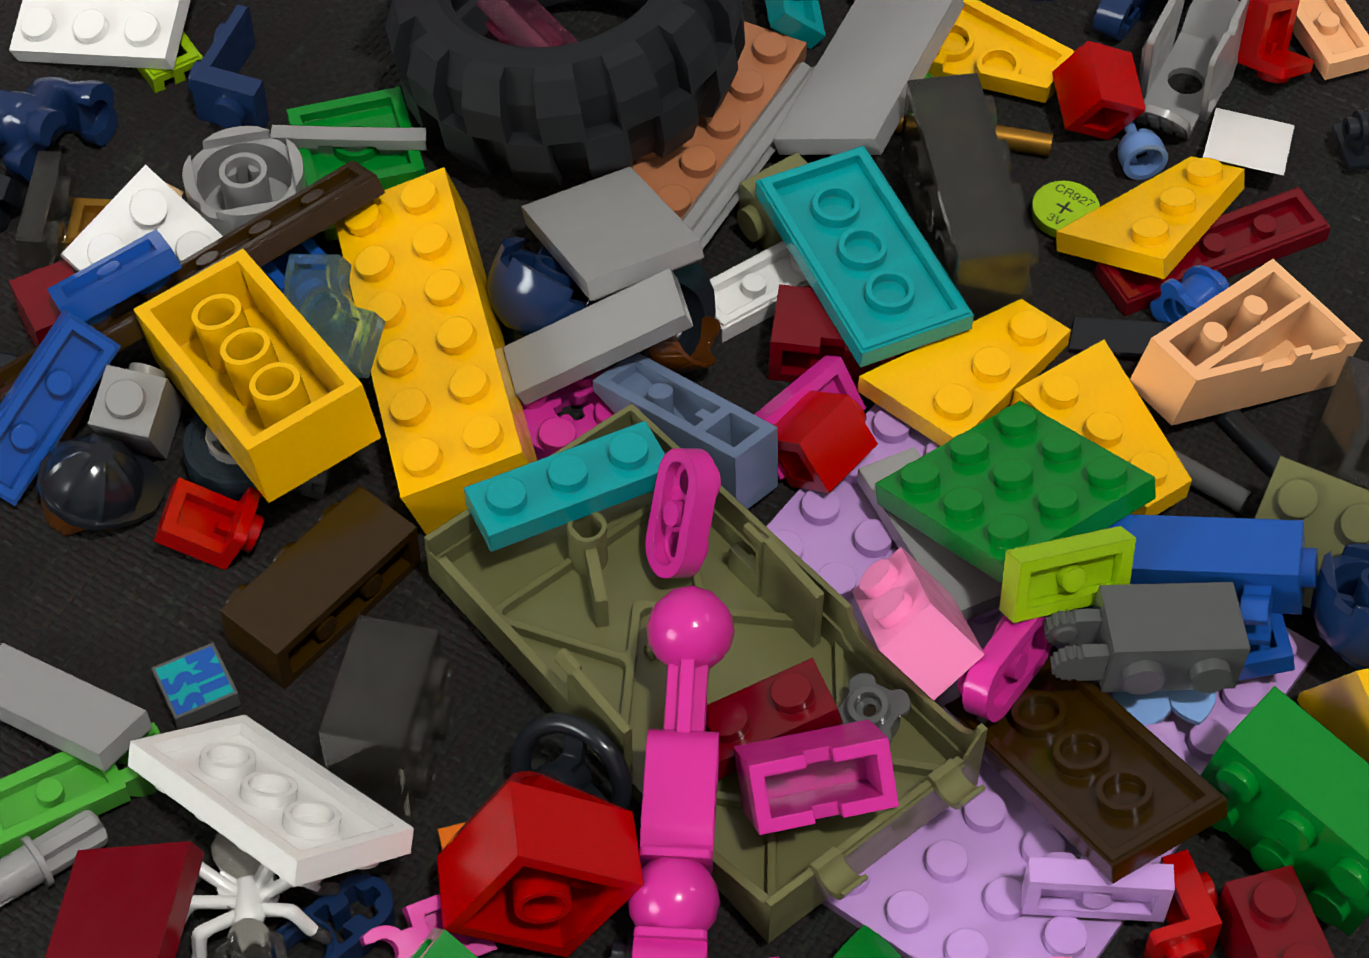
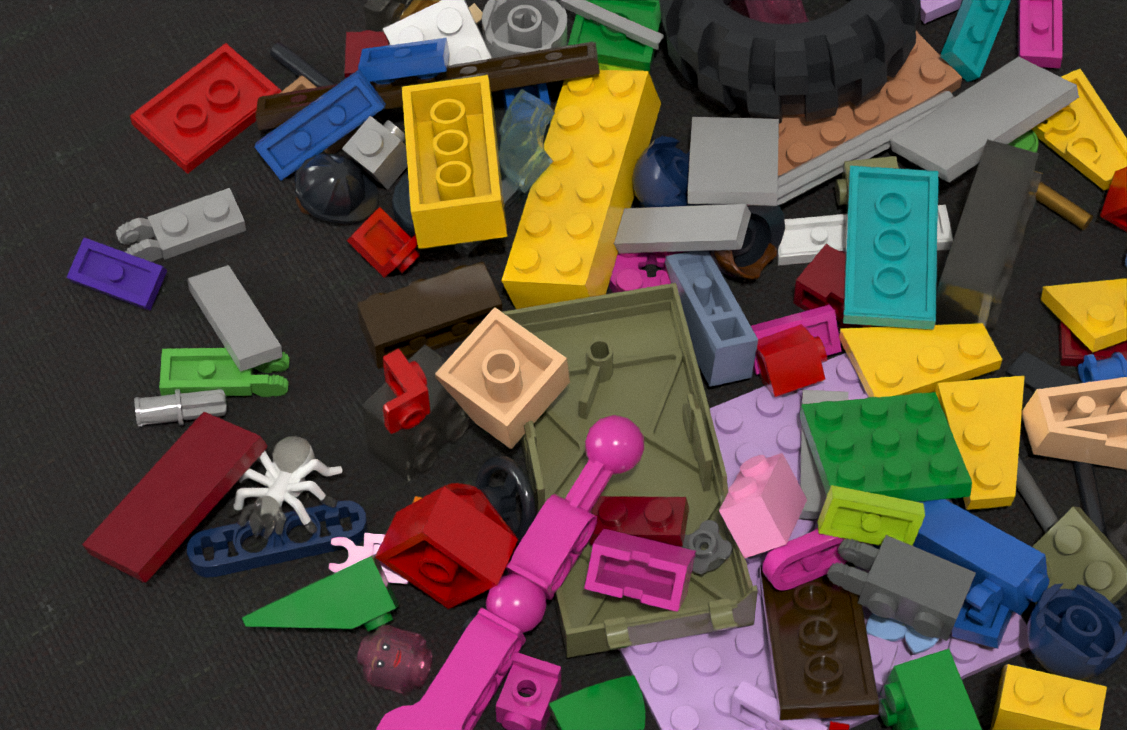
camera: 30 degrees right, 5 degrees up
(196, 686) = (325, 343): tile -> none
(270, 799) = (319, 432): white plate -> none
(378, 676) = (411, 393): none -> red bracket
(492, 608) = (504, 377): none -> light nougat slope
(565, 486) = (602, 319): teal plate -> none
(682, 512) = (659, 368): dark pink plate -> none
(1061, 204) = (1065, 268): lime piece -> none

